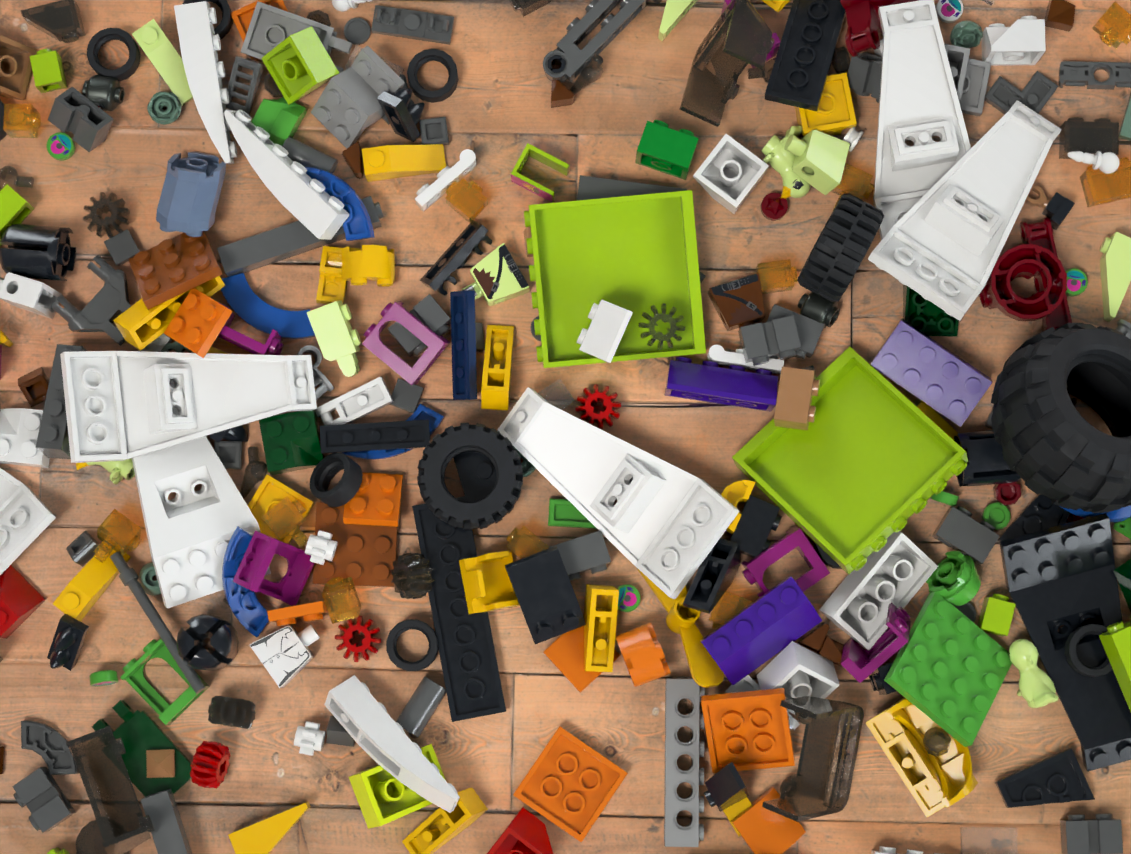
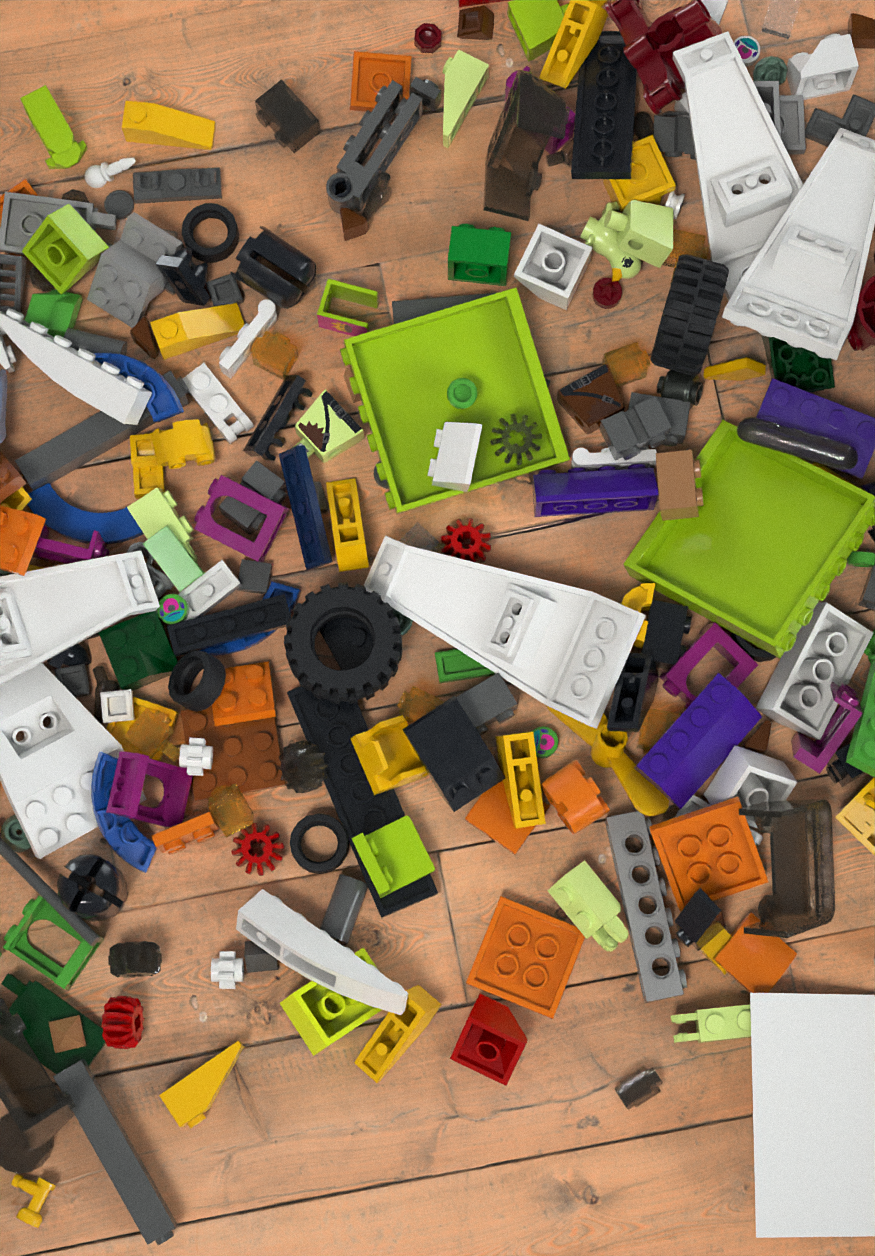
camera: 10 degrees left, 5 degrees down
(262, 487) = (117, 706): none -> white tile
(285, 652) = (181, 881): white torso -> none
(328, 411) = (173, 609): none -> tile
(338, 366) = (173, 558): none -> tile
(405, 231) = (216, 402): none -> white plate
(474, 132) = (281, 255): none -> black cylinder
(474, 672) = (393, 856): none -> lime bracket
(623, 275) = (462, 393): none -> bright green tile
(635, 752) = (590, 906): none -> yellowish green hinge
(831, 650) = (780, 750): reddish brown slope -> none
(875, 303) = (735, 370): none -> yellow tile
(909, 385) = (797, 443): none -> clear smoke piece

